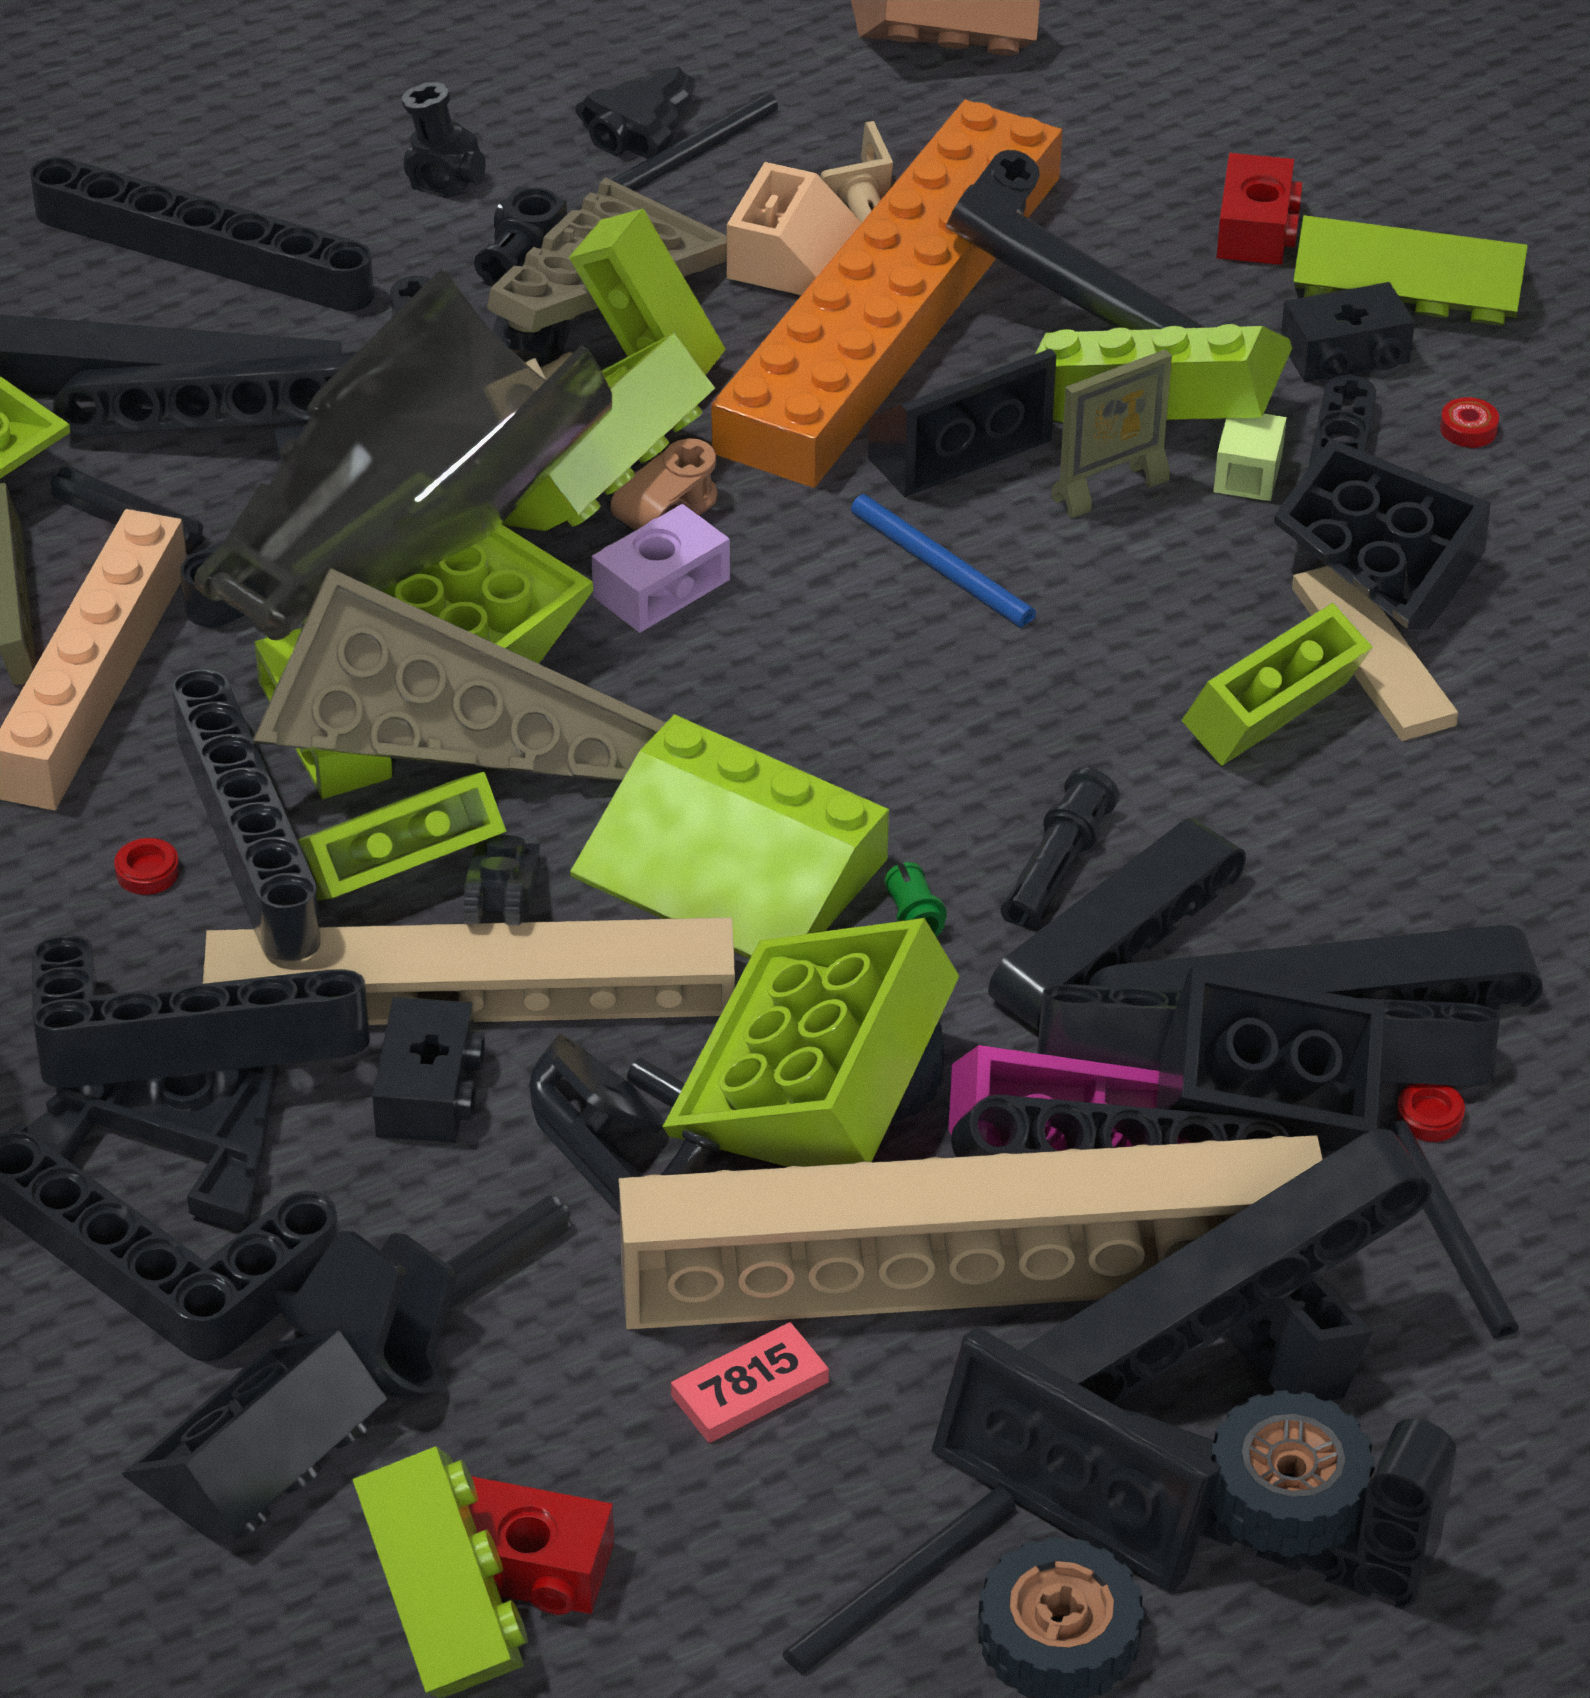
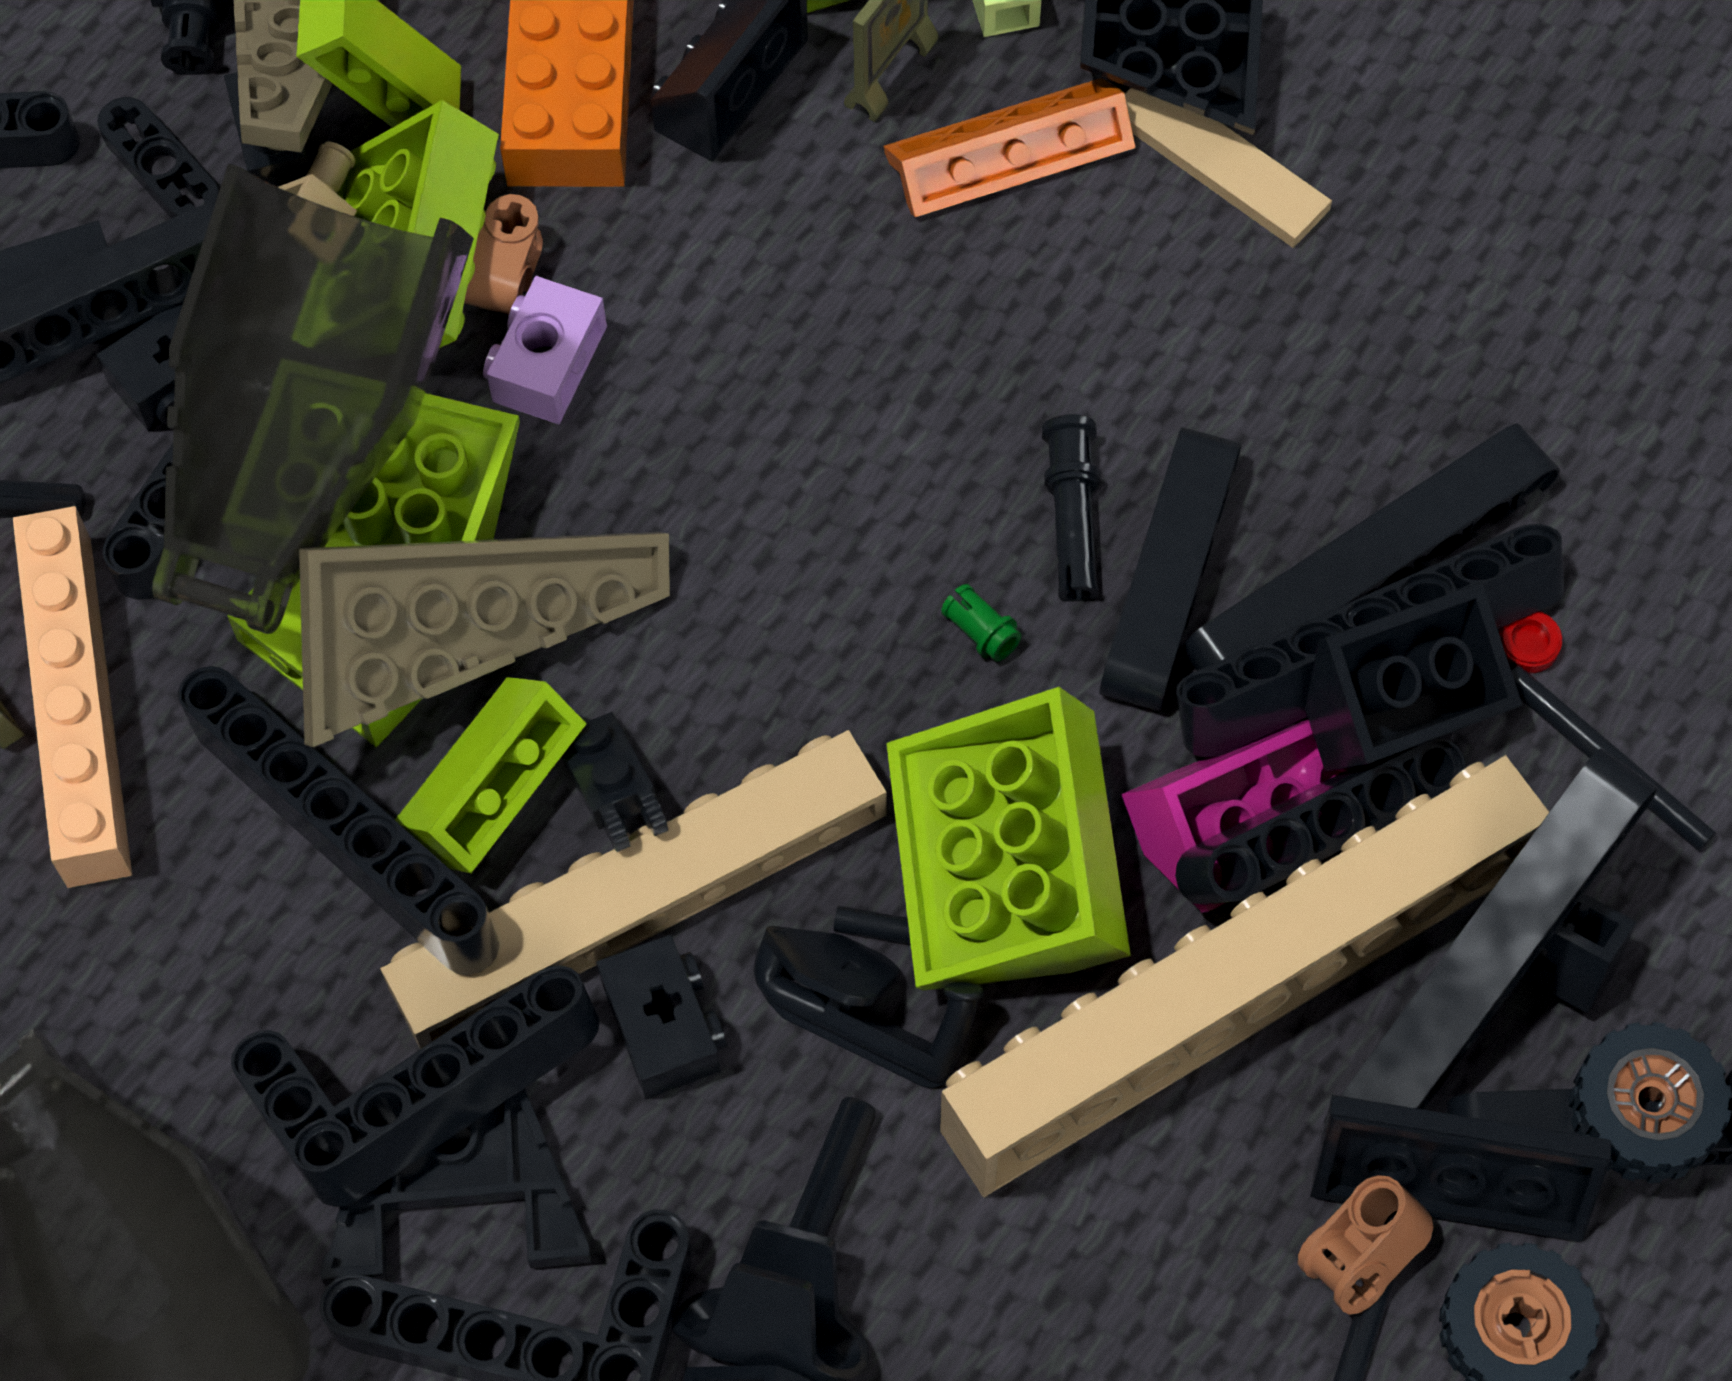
camera: 25 degrees left, 20 degrees up
(146, 866) = (260, 902): red tile -> none
(732, 835) = (788, 638): lime slope -> none
(749, 1382) = (1123, 1204): coral tile -> none
(943, 561) = (789, 222): blue piece -> none
(960, 1482) = (1365, 1244): none -> nougat piece
(1181, 574) = (1011, 146): none -> orange fence
(1276, 683) = (1173, 246): lime brick -> none

